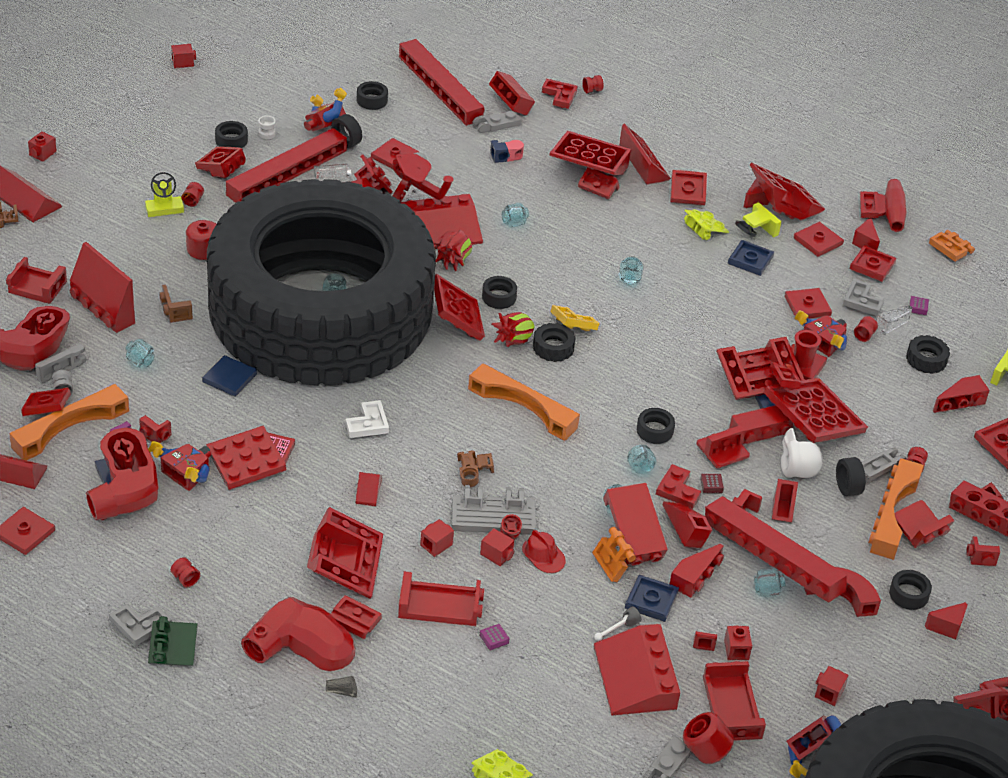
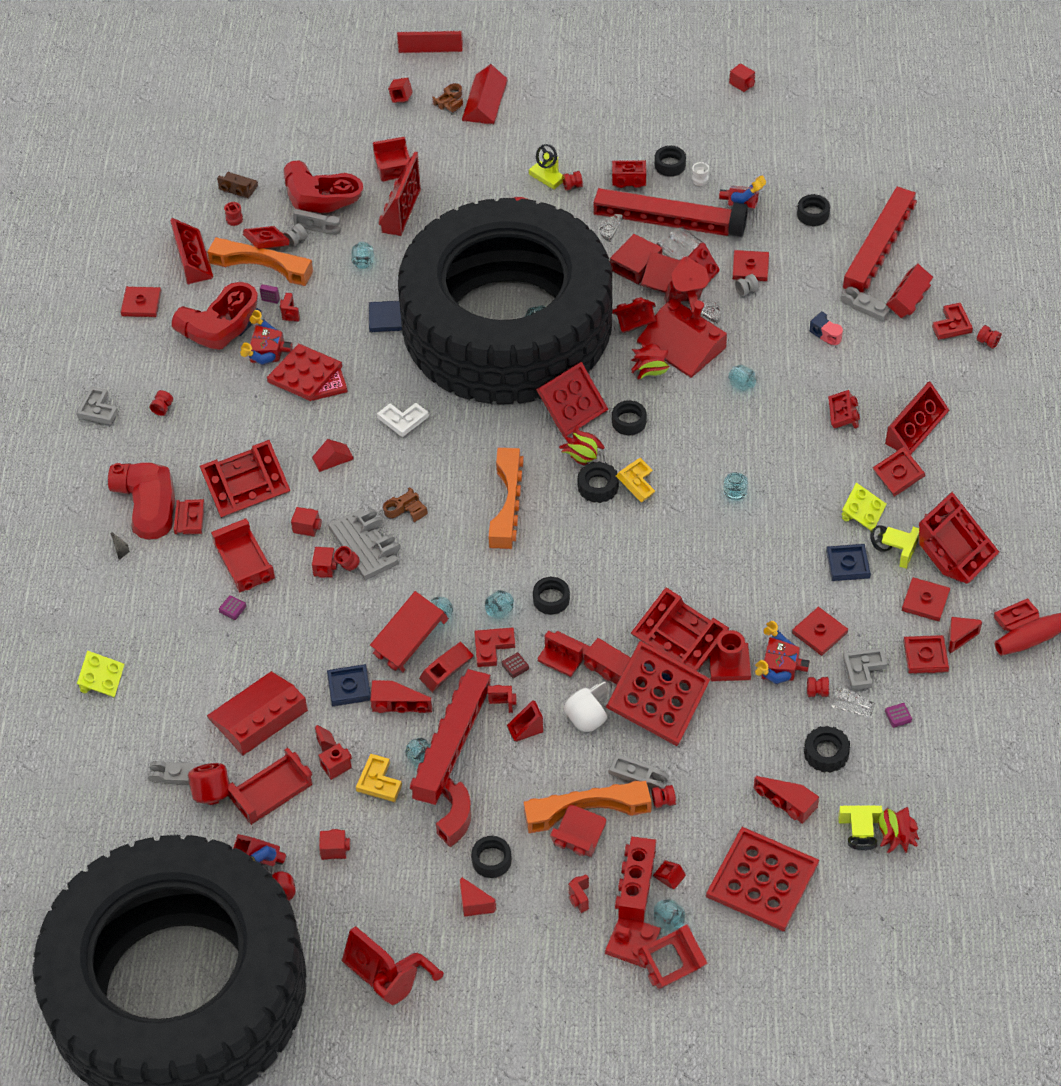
camera: 65 degrees right, 10 degrees up
(42, 146) = (546, 72): red brick -> none
(172, 642) = (89, 433): dark green hinge -> none
(543, 552) = (345, 595): red piece -> none
(592, 153) = (865, 384): red slope -> none
(609, 558) = (368, 636): orange plate -> none
(630, 617) = (313, 680): hinge -> none
(777, 628) = (374, 781): none -> yellow plate
(785, 376) = (669, 647): red plate -> none
(850, 476) = (592, 754): black tyre -> none
(951, 245) = (1012, 704): orange plate -> none

